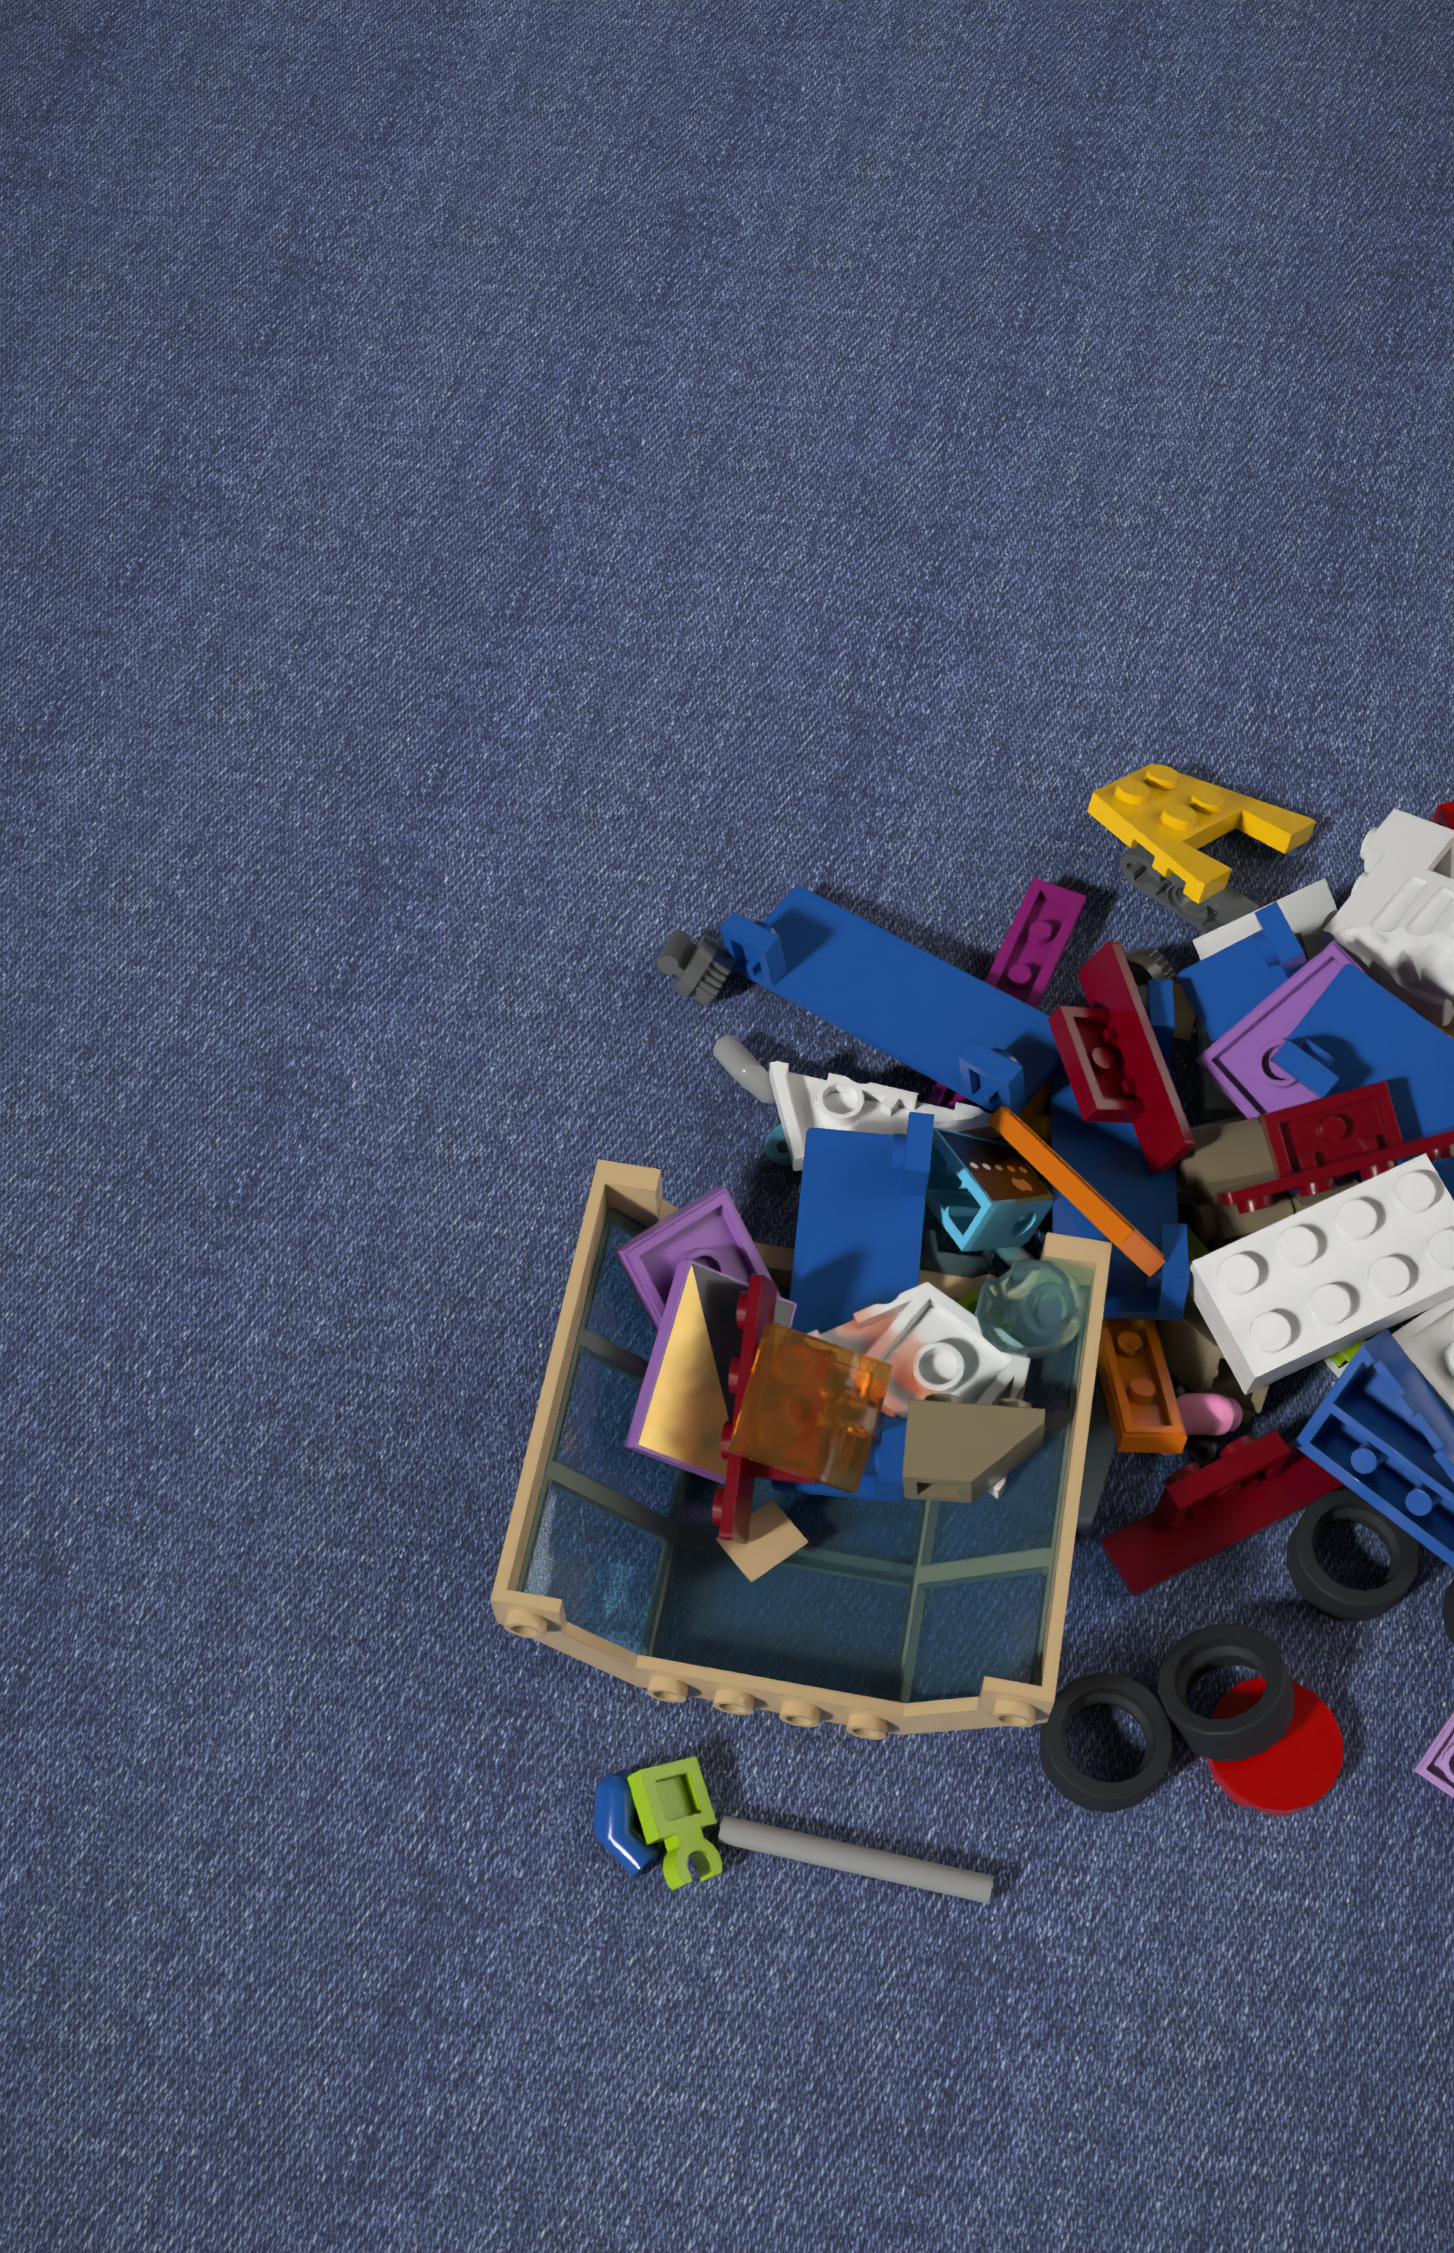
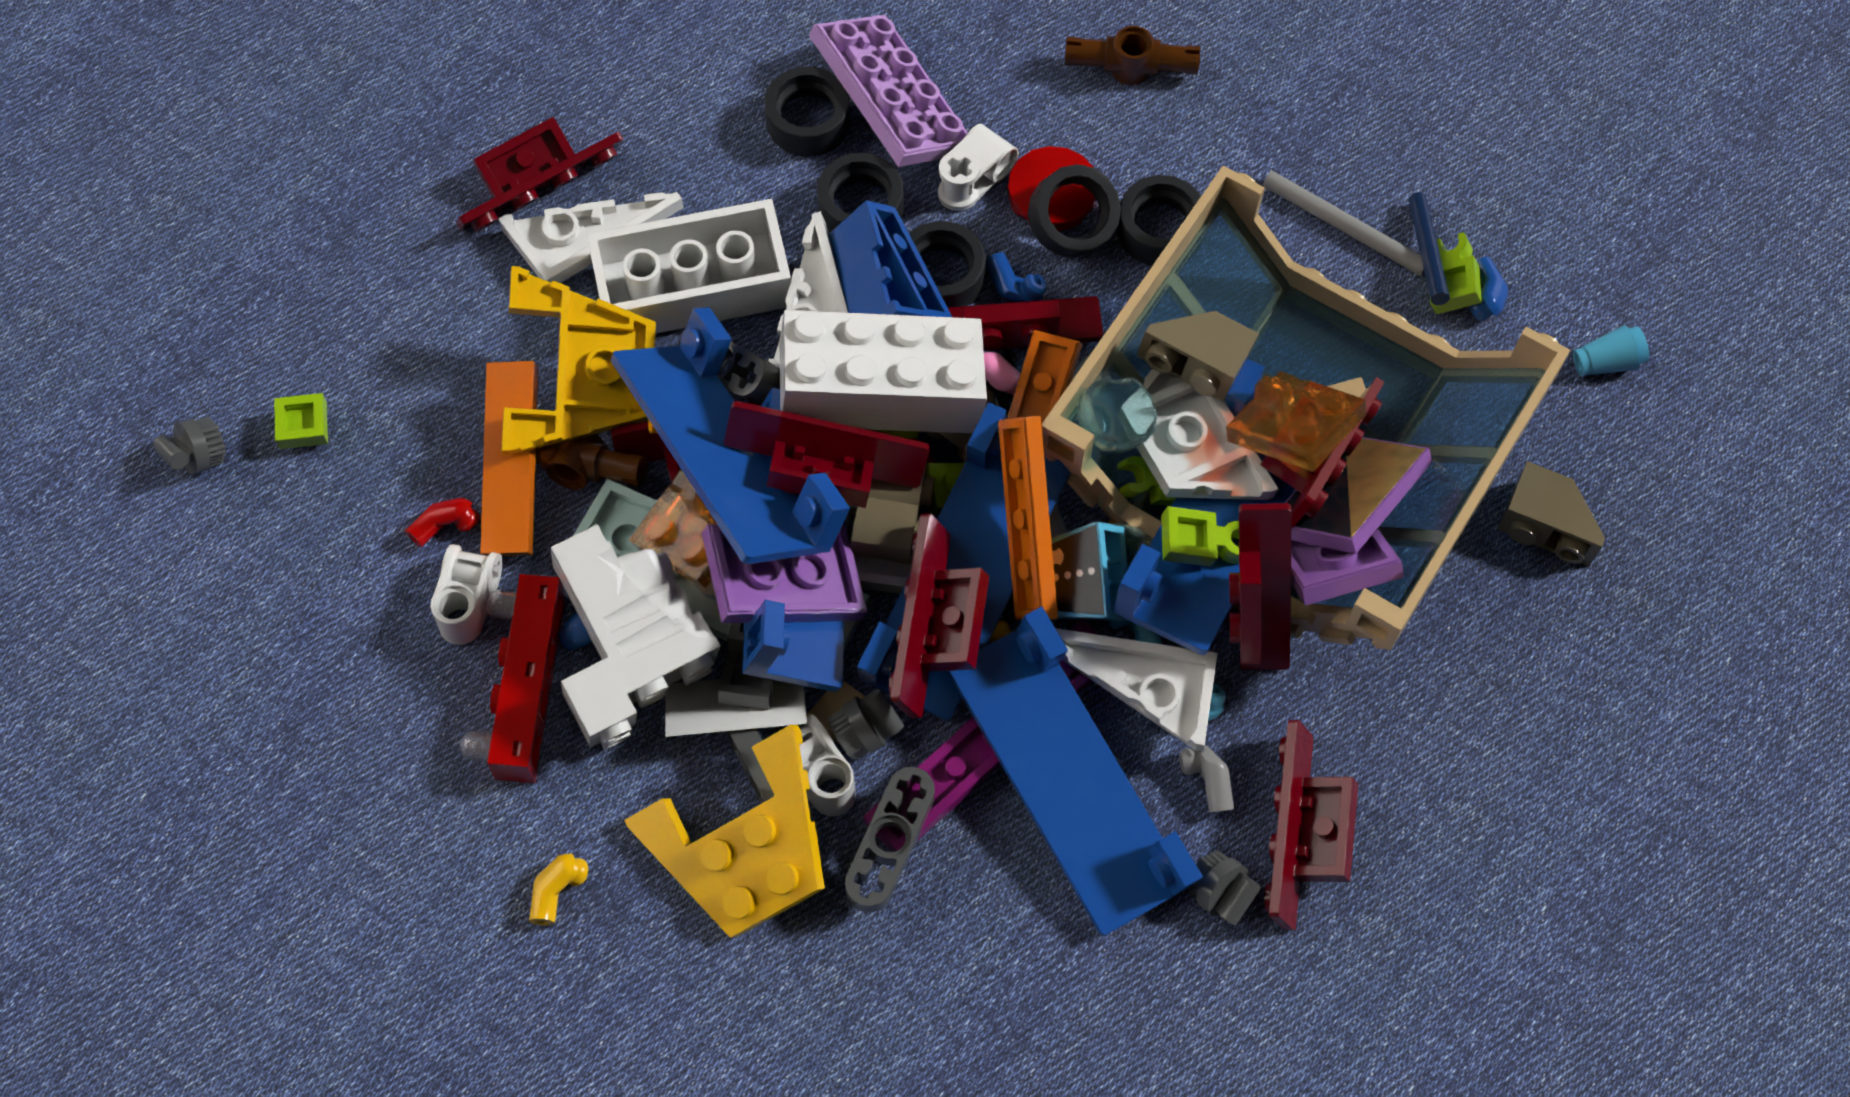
camera: 160 degrees left, 5 degrees up
(427, 1782) = (1613, 352): none -> medium azure cone
(455, 1506) = (1551, 514): none -> dark tan slope
(627, 1053) = (1312, 828): none -> dark red bracket
(726, 1845) = (1428, 249): none -> dark blue bar
(783, 1191) = (1263, 587): none -> dark red bracket
(873, 1237) = (1196, 539): none -> lime plate
(1038, 893) = (862, 867): none -> dark grey beam
(1161, 923) = (823, 763): none -> white piece
(1241, 2026) = (1132, 55): none -> reddish brown pin
(1251, 1572) = (1012, 286): none -> blue arm
(1346, 748) = (550, 882): none -> yellow arm
(1392, 1733) = (974, 167): none -> white piece

